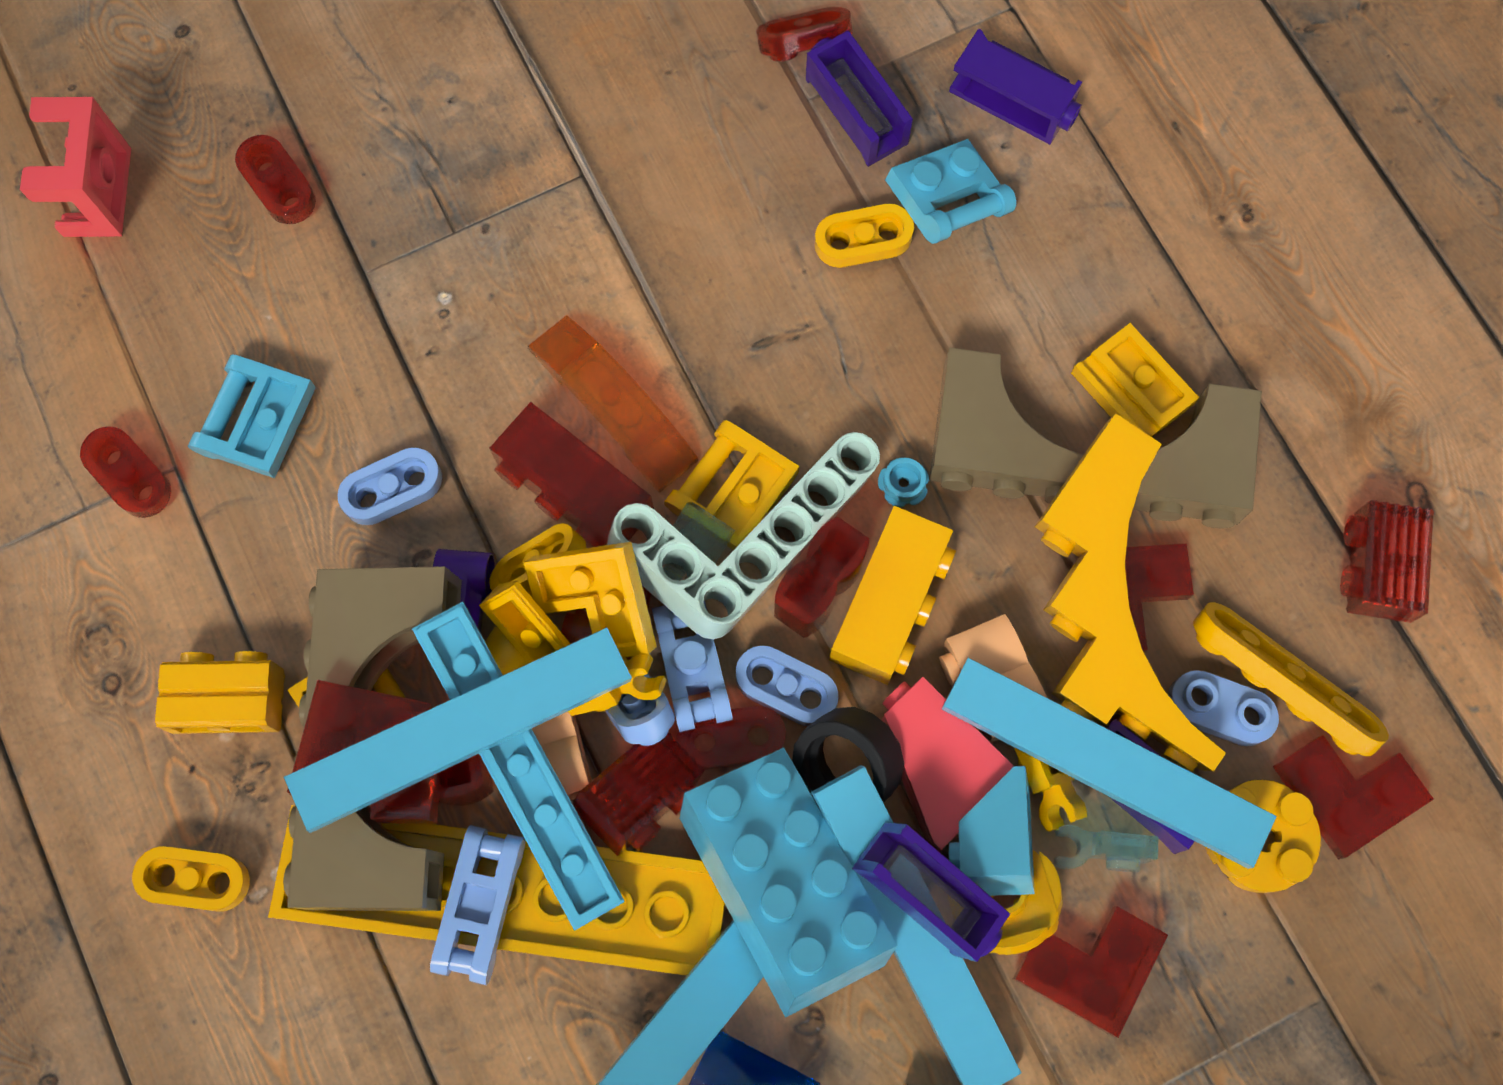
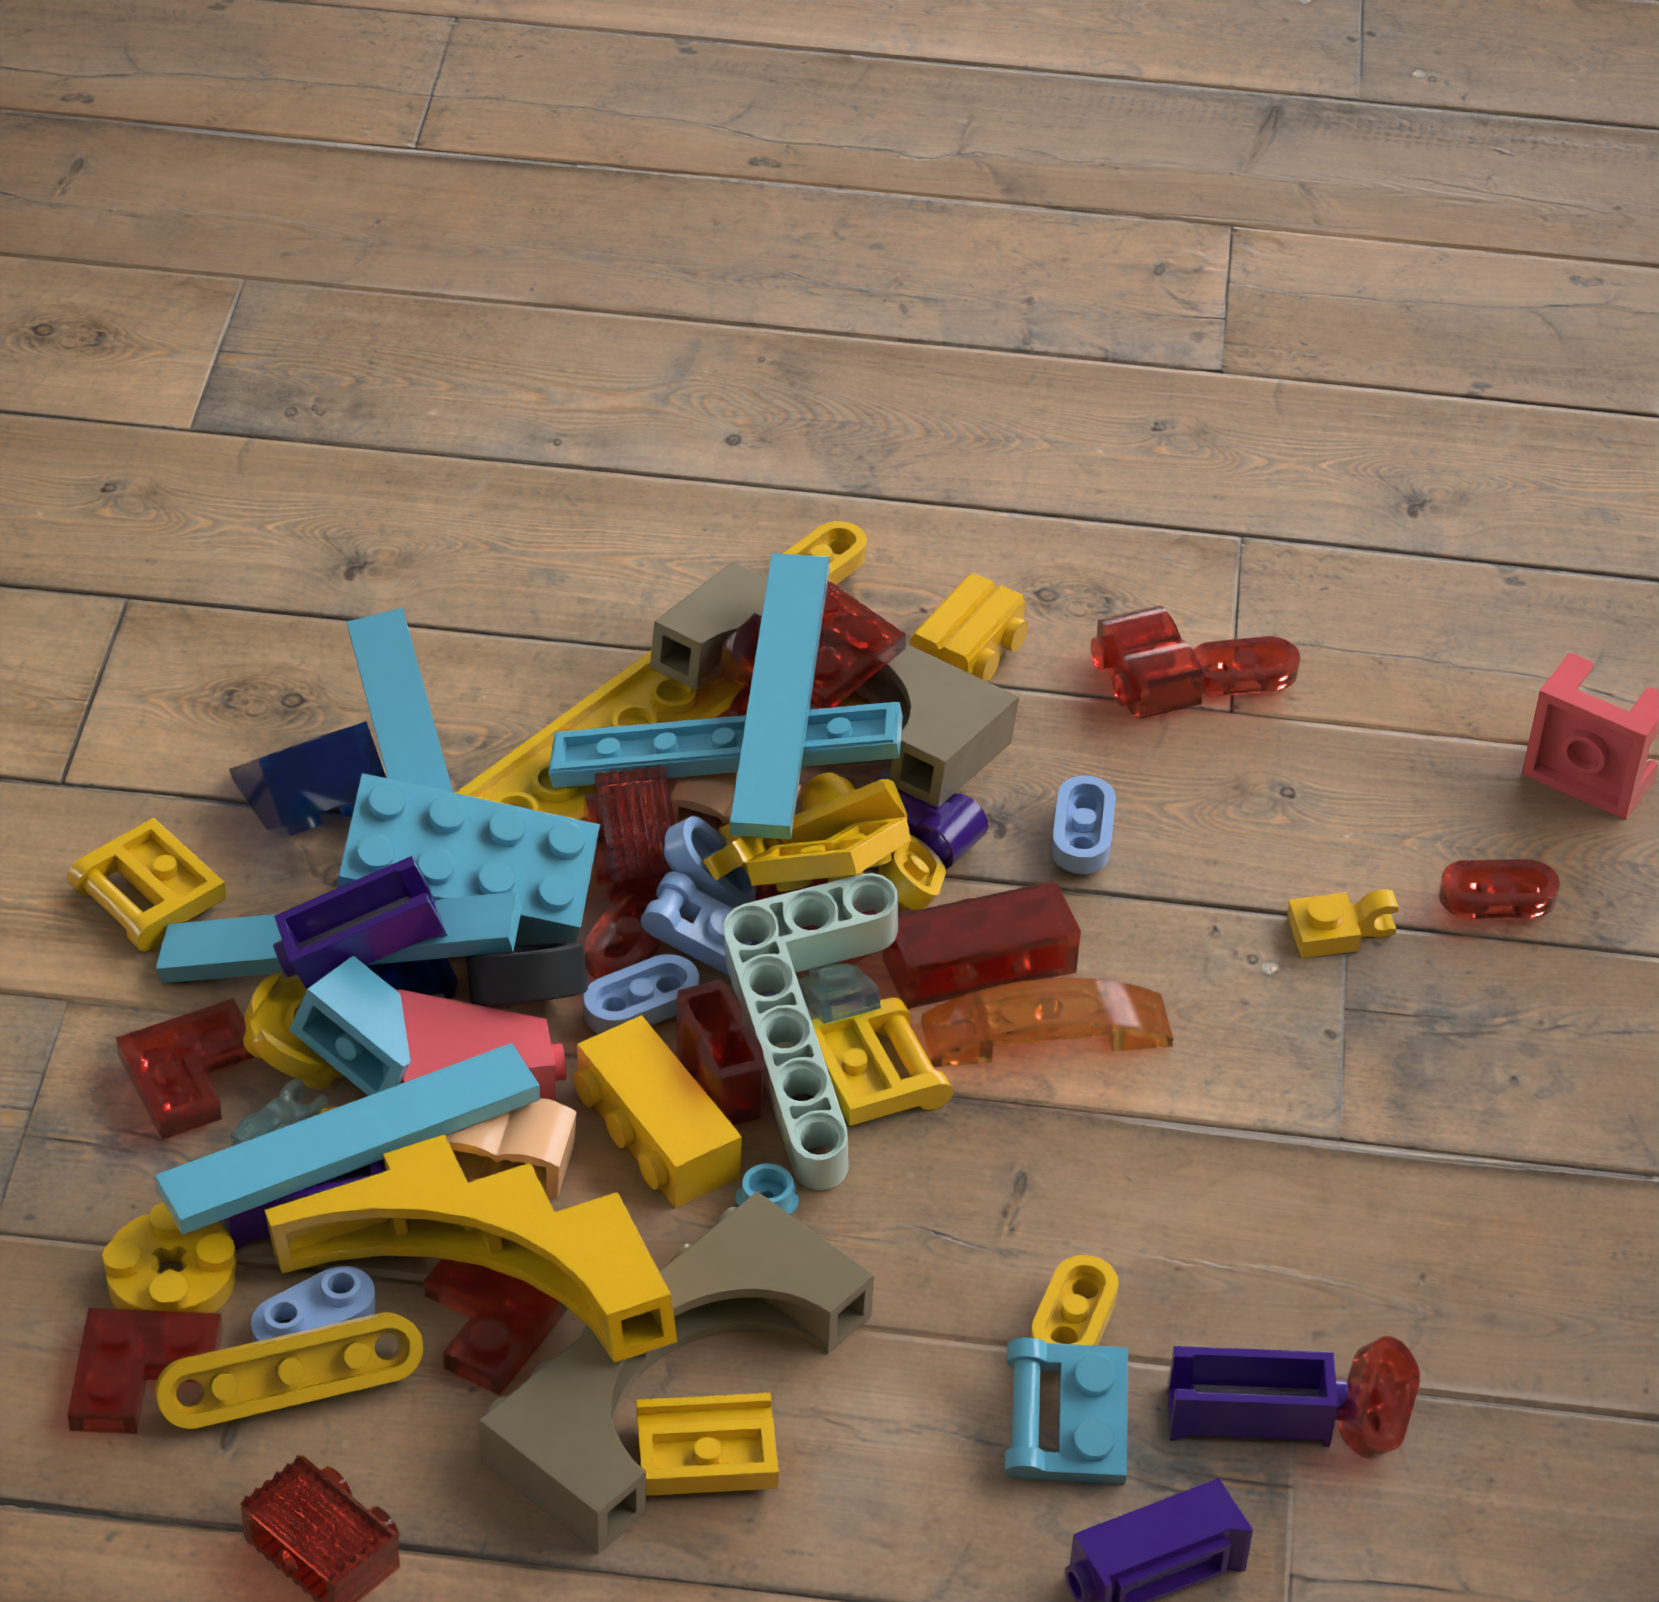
camera: 120 degrees right, 30 degrees down
(168, 541) = (1148, 662): none -> clear red brick
(265, 421) = (1226, 777): medium azure plate -> none
(378, 272) = (1334, 926): none -> yellow plate
(477, 905) = (631, 684): light blue plate -> none

